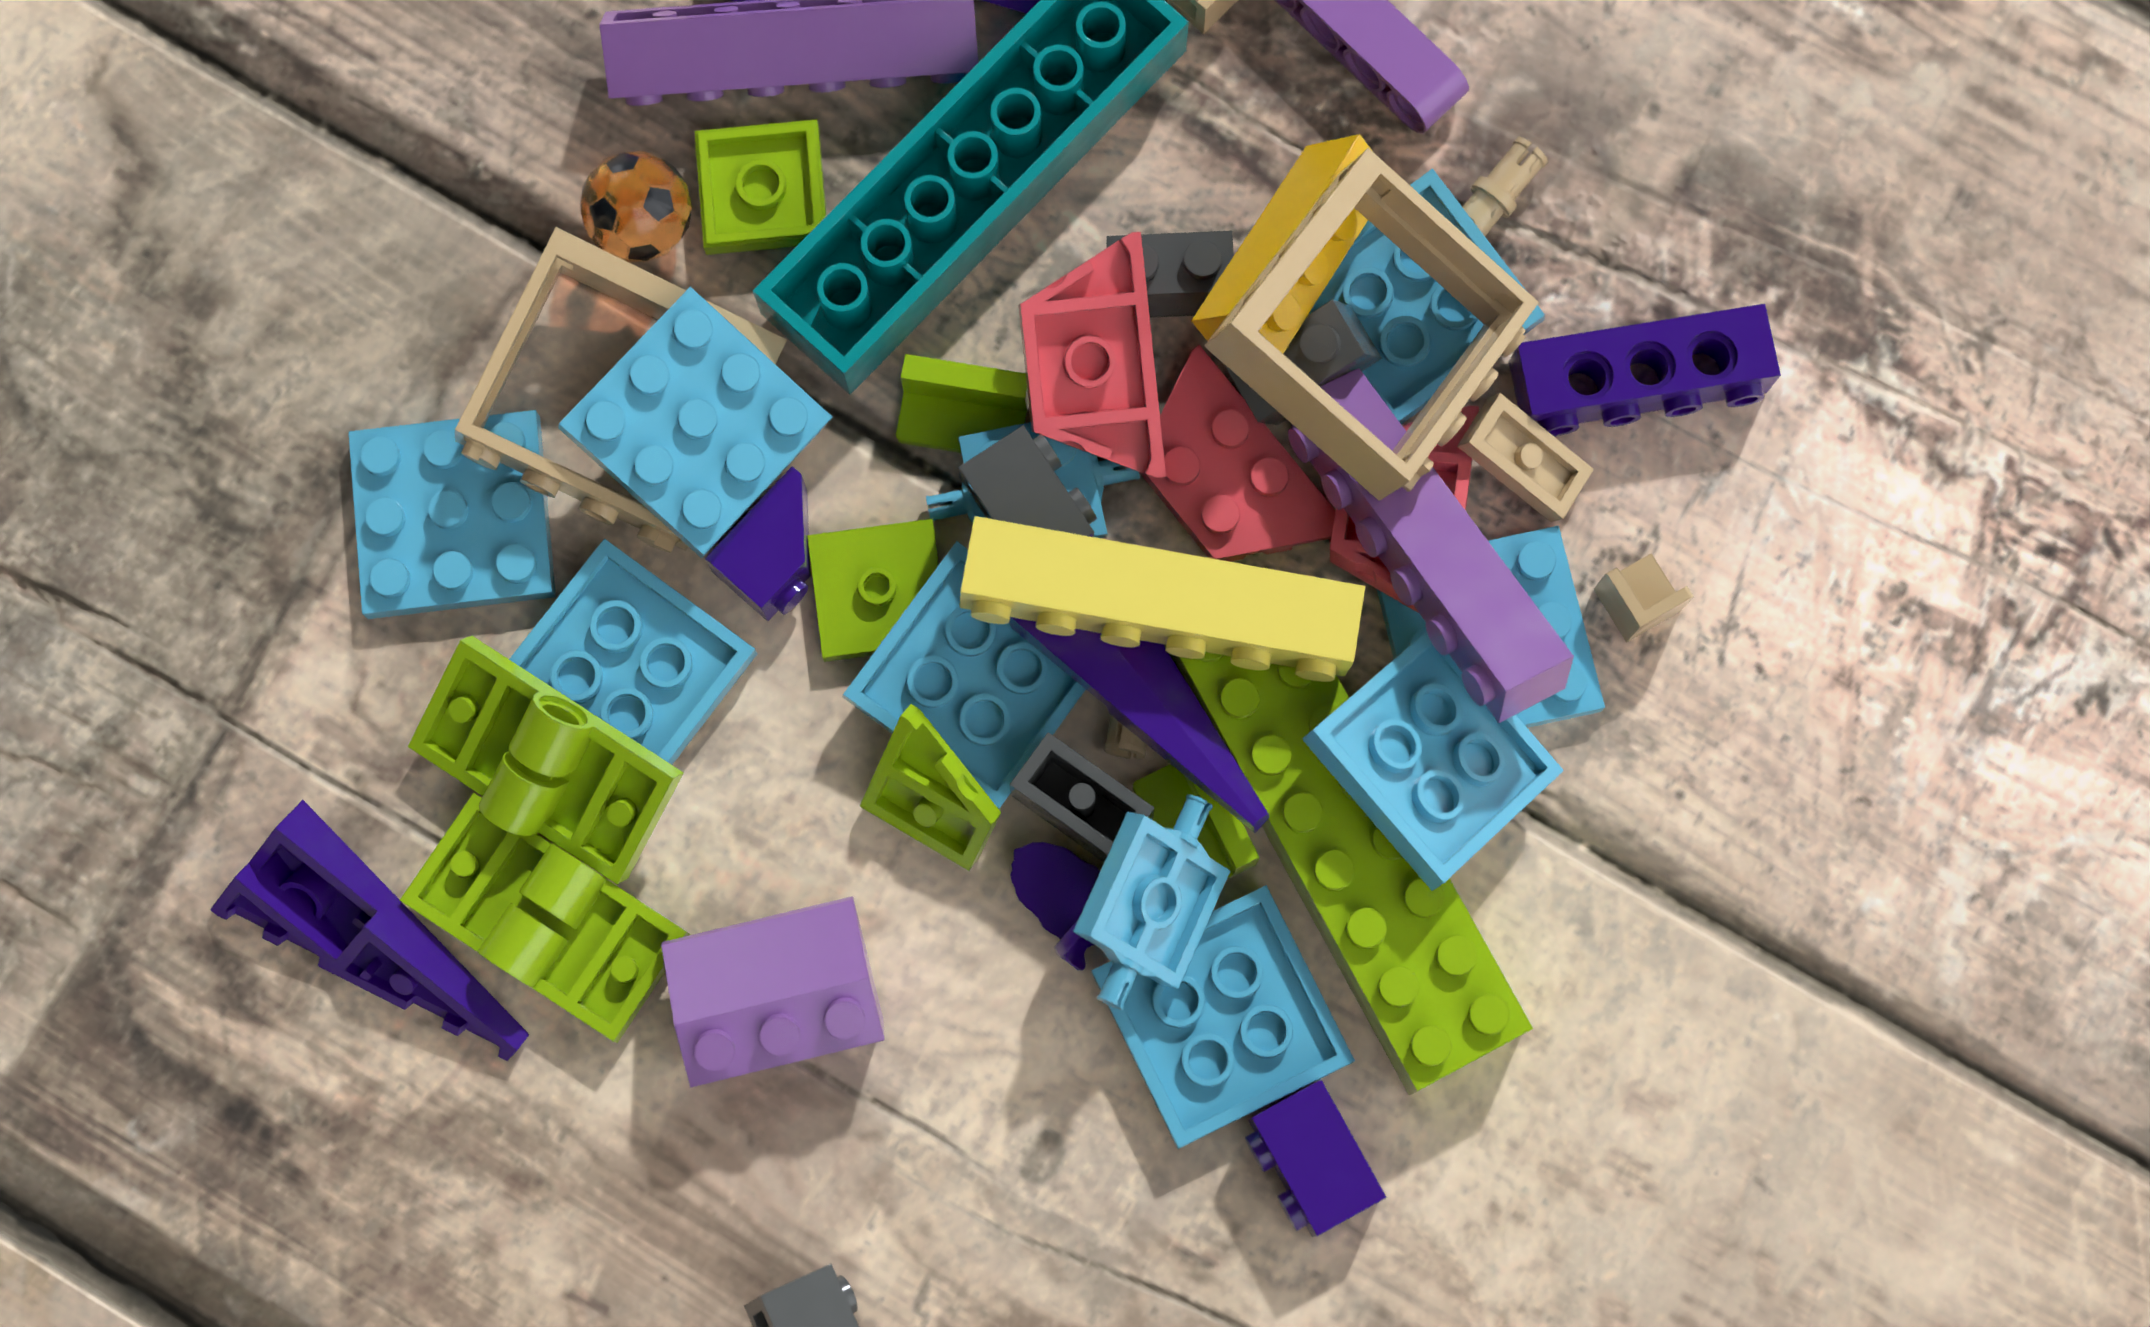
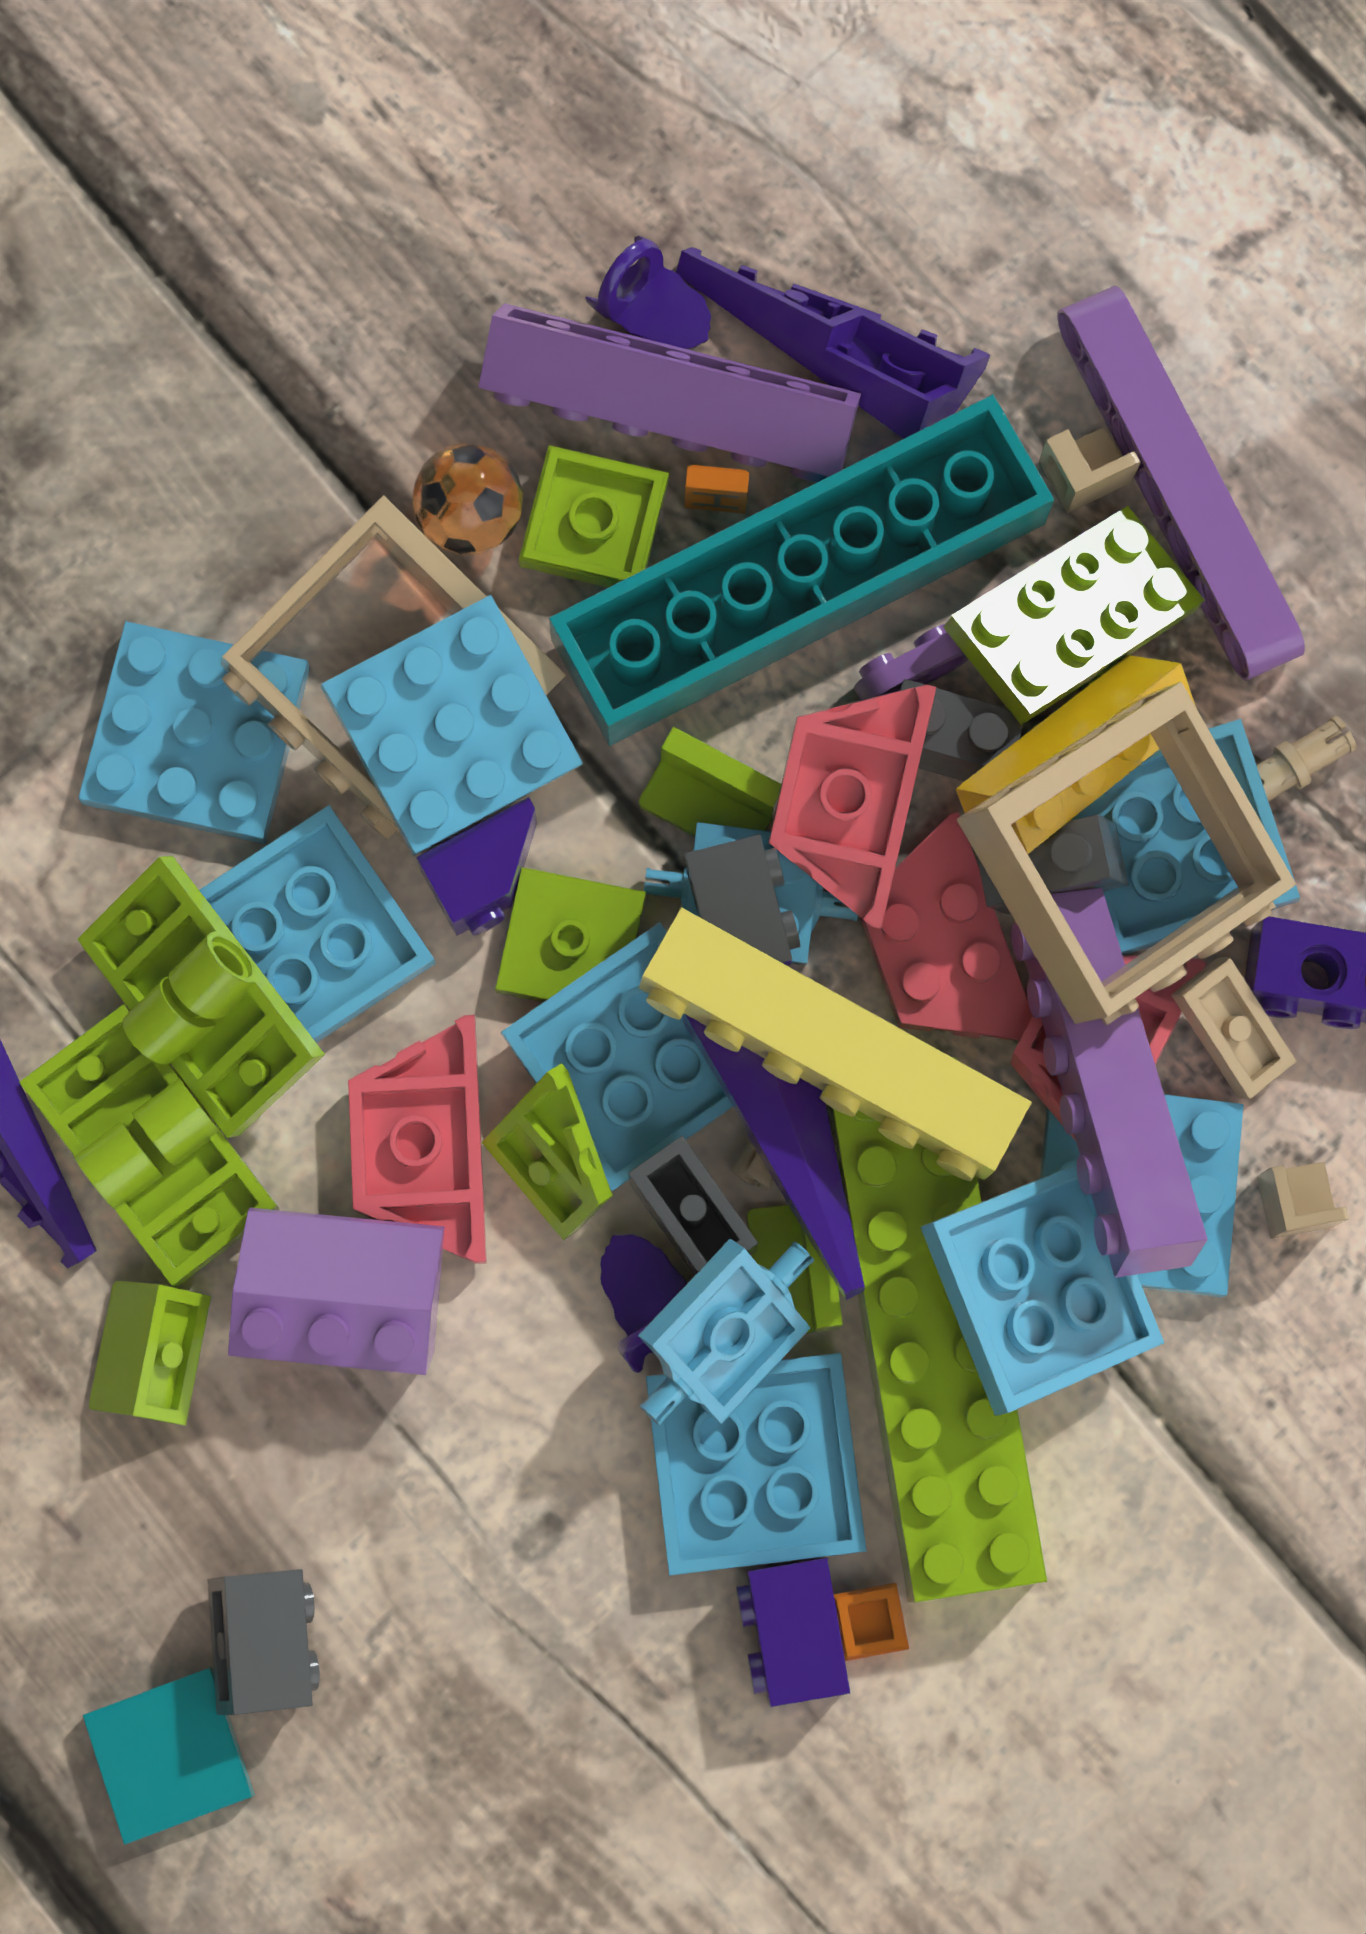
camera: 15 degrees right, 0 degrees up
(613, 1111) = (149, 1352): none -> lime panel
(802, 822) = (421, 1139): none -> coral wing
(868, 119) = (716, 489): none -> orange tile
(1127, 206) = (930, 660): none -> medium lavender plate
(1243, 124) = (1073, 614): none -> plate
(1382, 1125) = (871, 1621): none -> orange tile

